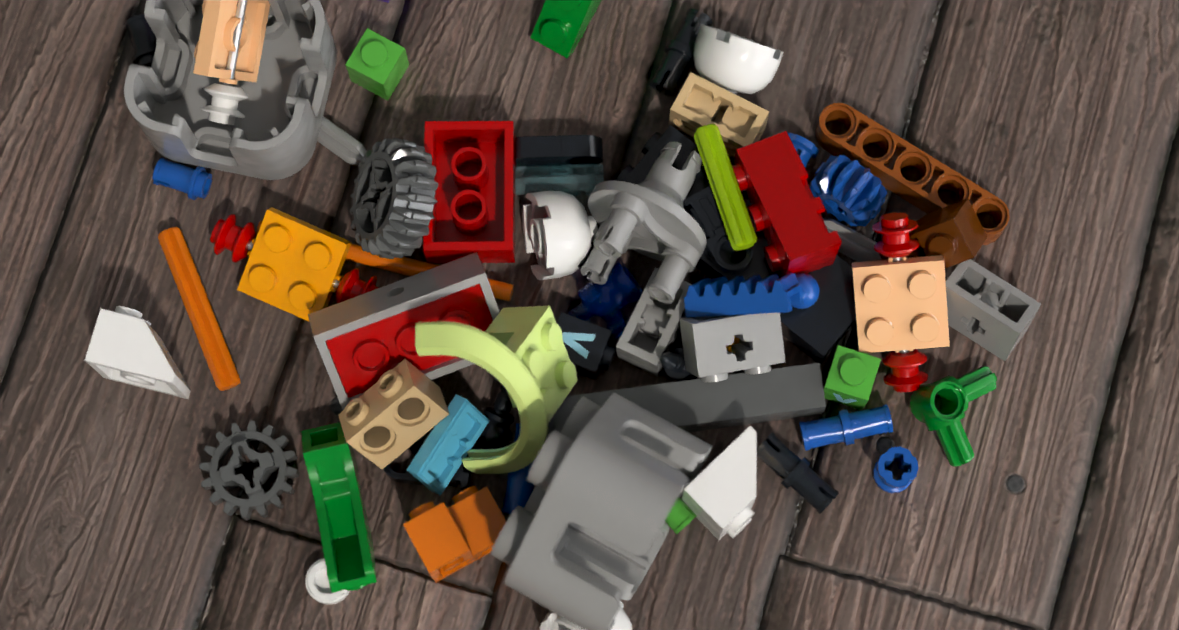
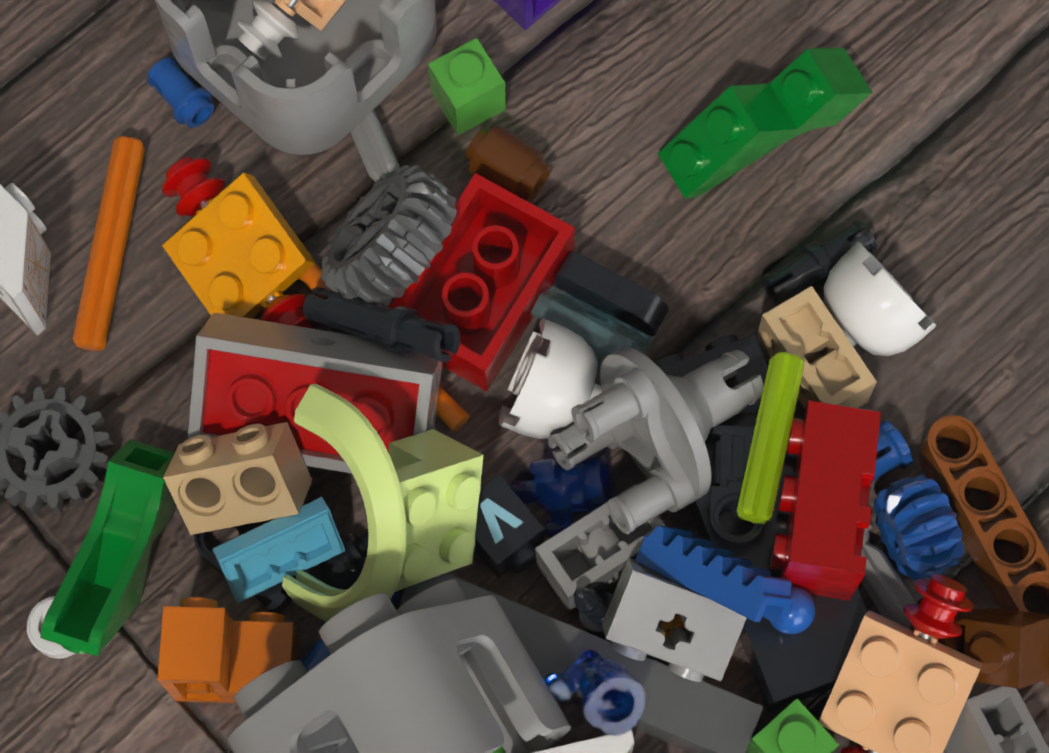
camera: 30 degrees right, 5 degrees down
(436, 101) = (508, 162): none -> reddish brown brick
(441, 255) = (396, 327): none -> black pin
(723, 410) = (609, 692): none -> clear blue piece

